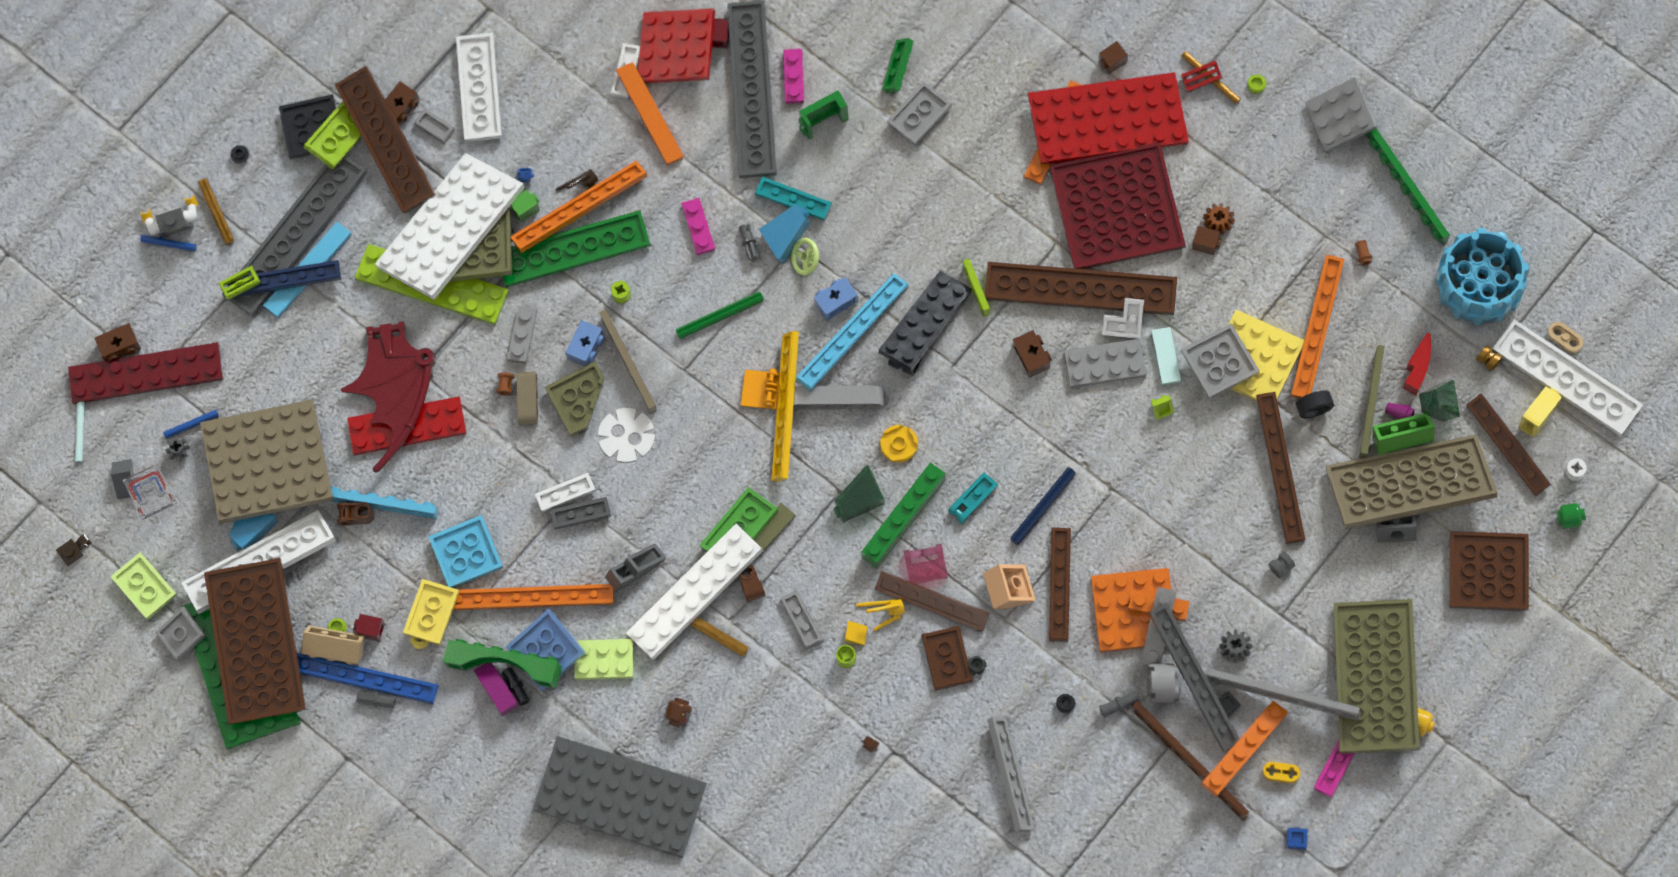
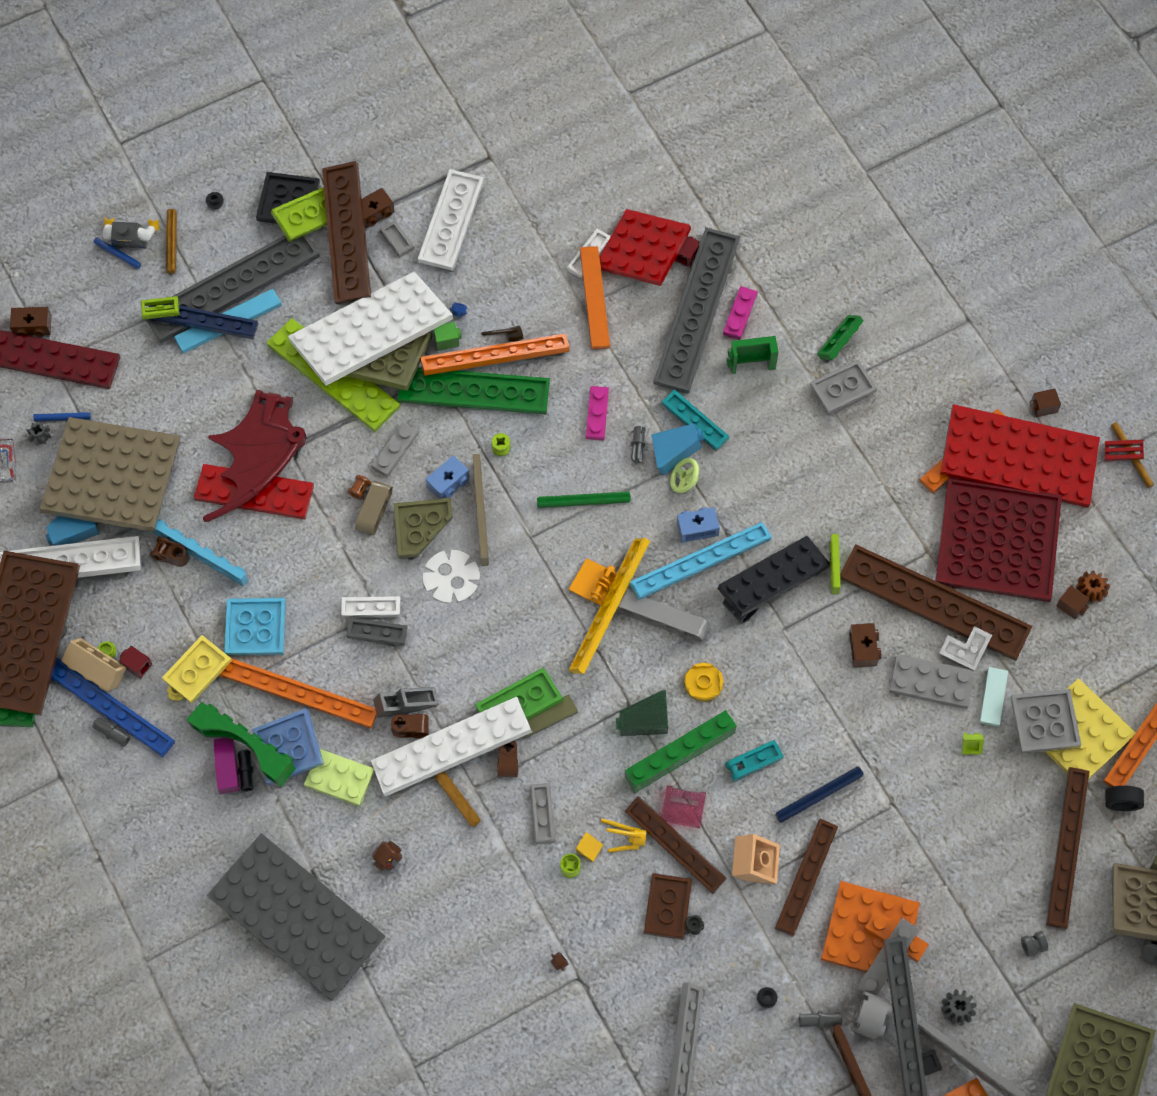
camera: 15 degrees right, 5 degrees down
(651, 586) = (412, 726): none -> reddish brown piece

